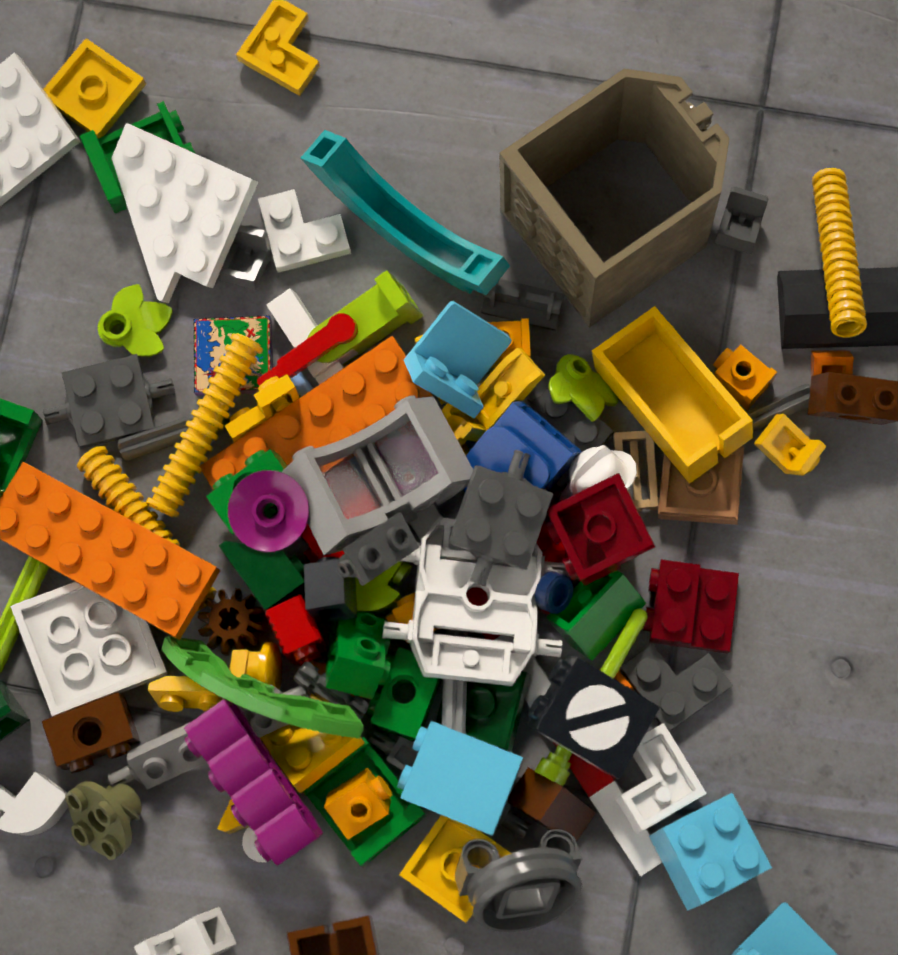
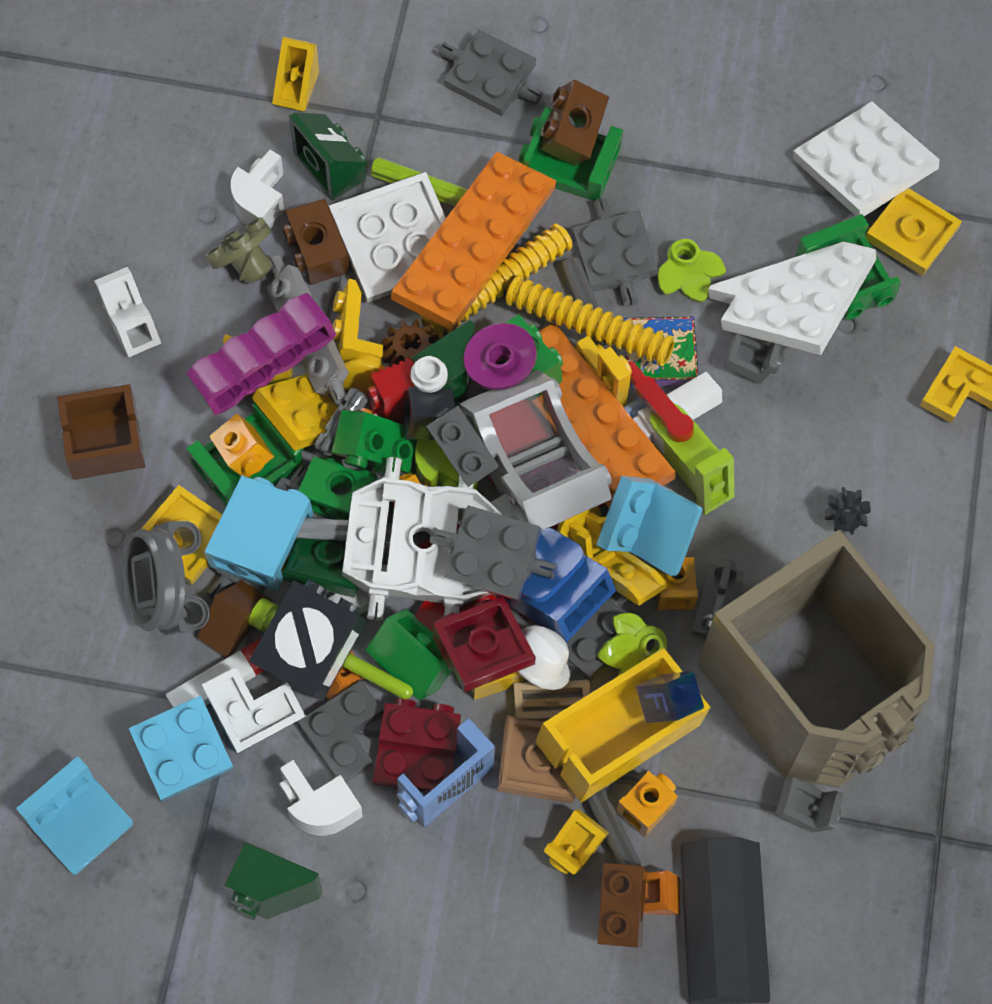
camera: 80 degrees right, 10 degrees down
(212, 673) = (357, 319): bright green tile -> none
(291, 588) = (429, 374): none -> white plate
(296, 242) = (774, 402): white plate -> none
(398, 220) = (799, 483): teal arch -> none
(425, 170) = (847, 520): none -> black gear
(553, 592) = (426, 609): dark blue tile -> none
(650, 342) = (670, 697): none -> brick
(735, 555) = (479, 761): none -> medium blue panel
(767, 704) = (318, 811): none -> white brick
(839, 253) = (775, 890): yellow piece -> none
(855, 749) = (269, 884): none -> dark green slope

